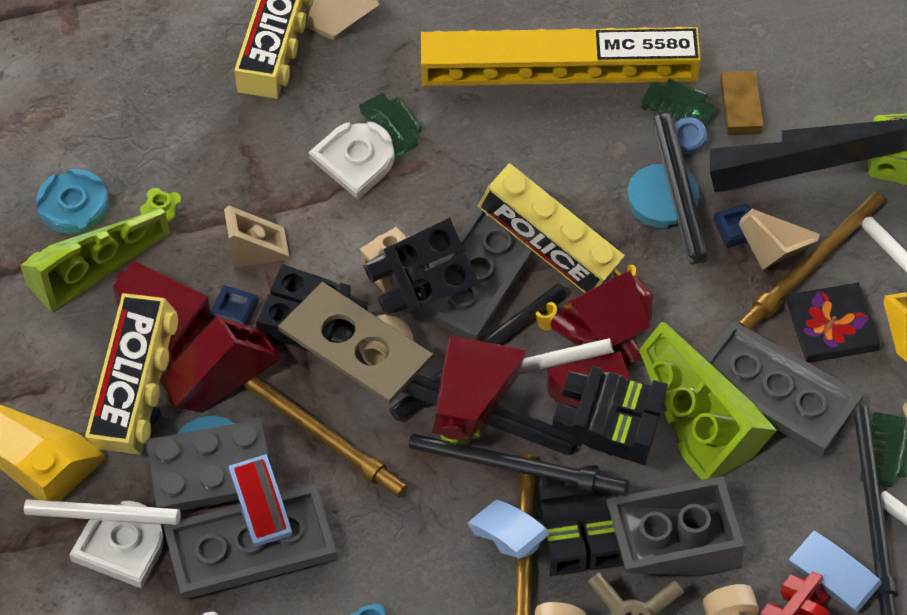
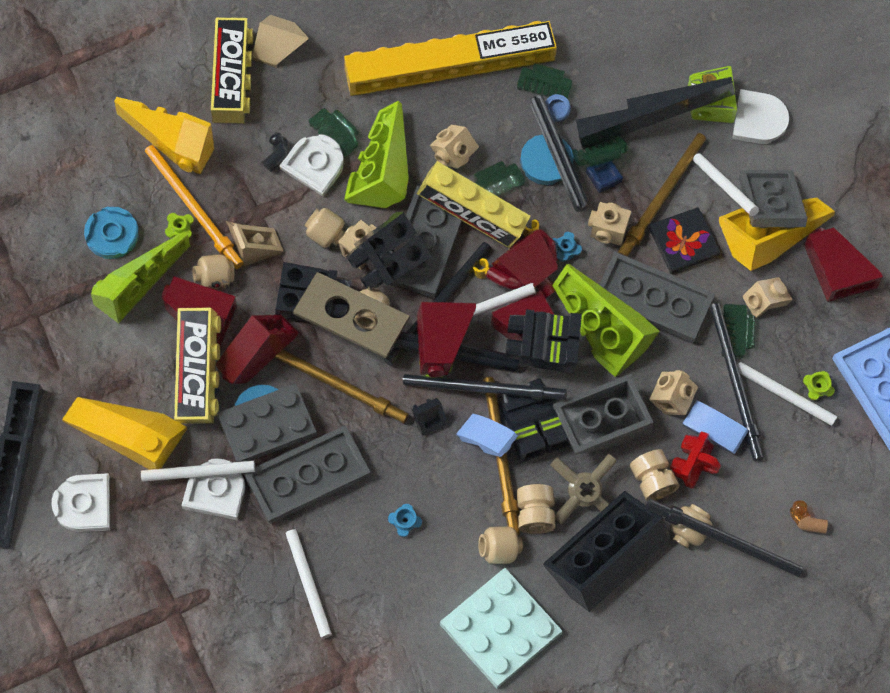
camera: 15 degrees left, 10 degrees up
(185, 95) = (179, 137): none -> yellow wedge
(190, 265) = (214, 272): none -> tan head
(210, 234) = (222, 243): none -> light orange bar
(234, 305) = (252, 298): dark blue tile -> none
(260, 500) = (311, 445): slope -> none
(312, 136) = (279, 153): none -> black arm
(347, 232) = (325, 227): none -> tan head
(434, 492) = (429, 416): none -> black tile
(443, 170) = (383, 165): none -> lime wedge
(542, 158) = (454, 146): none -> tan brick
(595, 204) = (496, 174): none -> clear green piece
(668, 314) = (573, 249): none -> dark azure plate
(732, 283) = (609, 223): none -> tan brick
(738, 198) = (602, 154): none -> clear green piece
(741, 102) = (590, 74): pearl gold tile -> none
(773, 238) = (633, 184): tan slope -> none
(782, 515) = (673, 393): none -> tan brick

